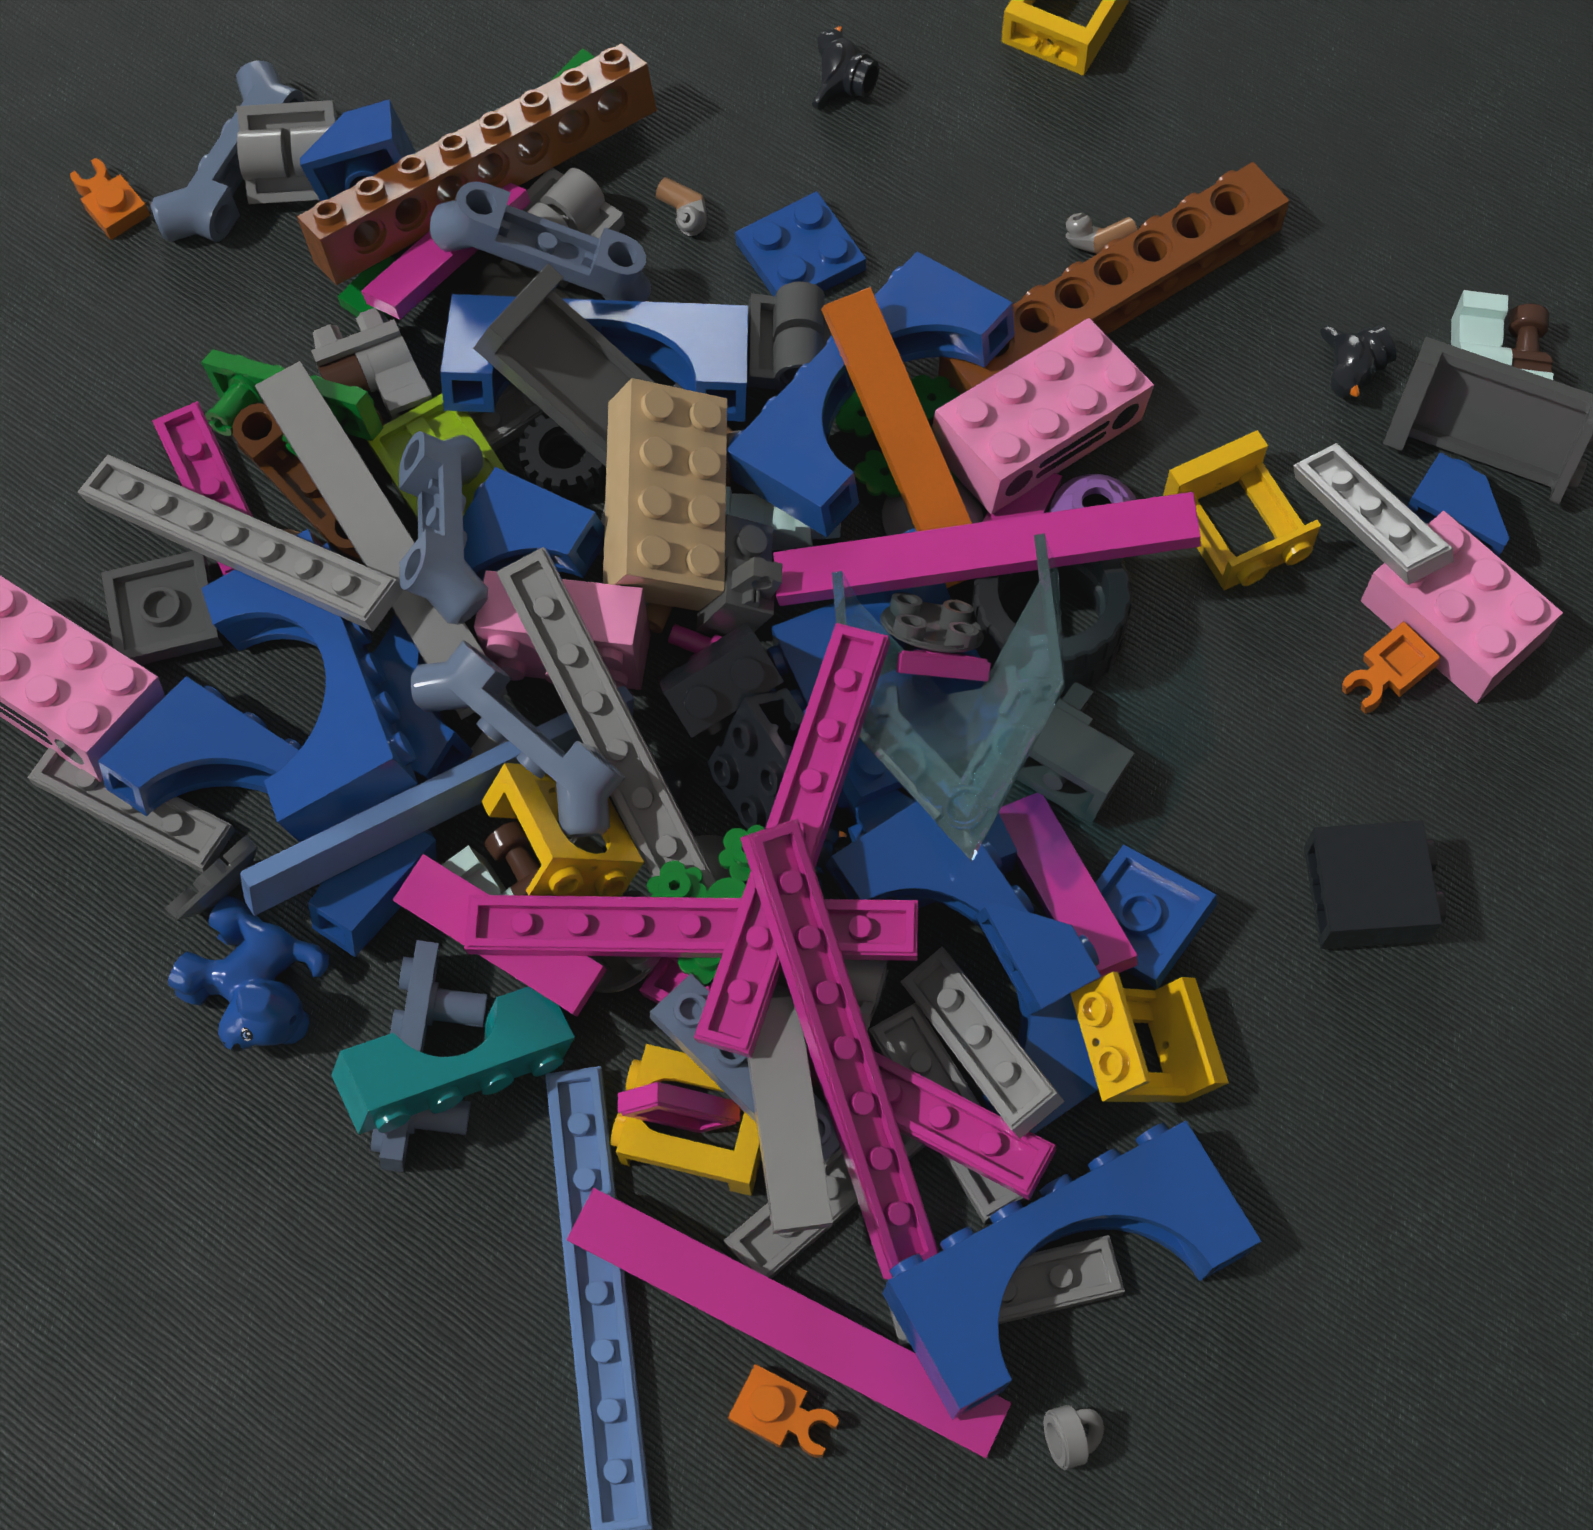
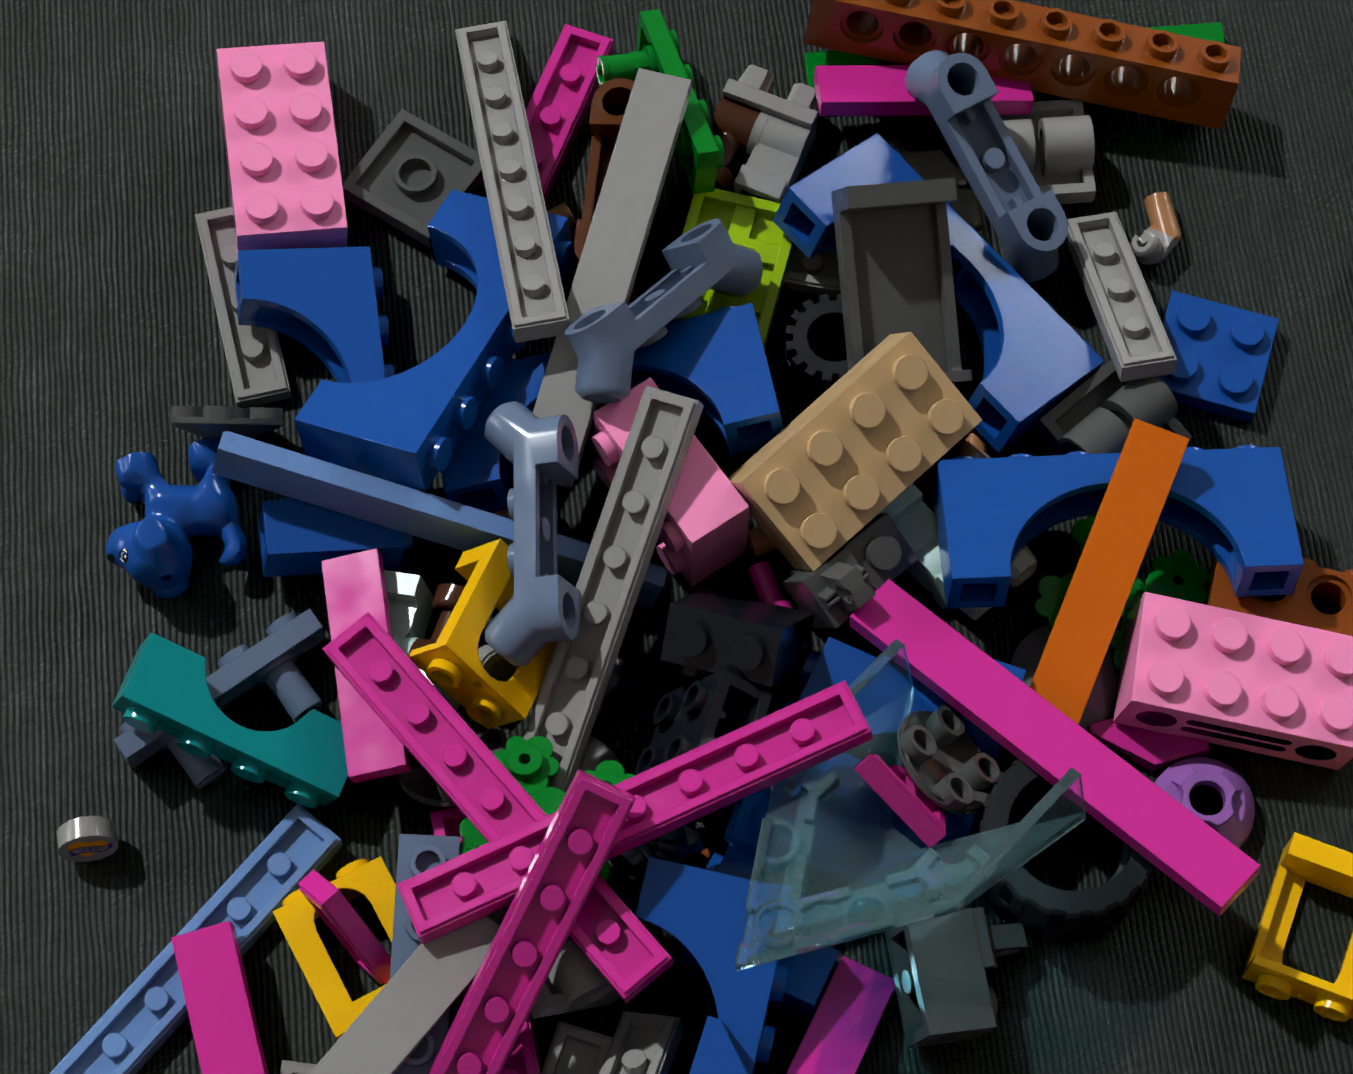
camera: 45 degrees right, 0 degrees up
(429, 1242) = (87, 838): none -> light grey tile
(717, 261) = (1119, 297): none -> light grey tile

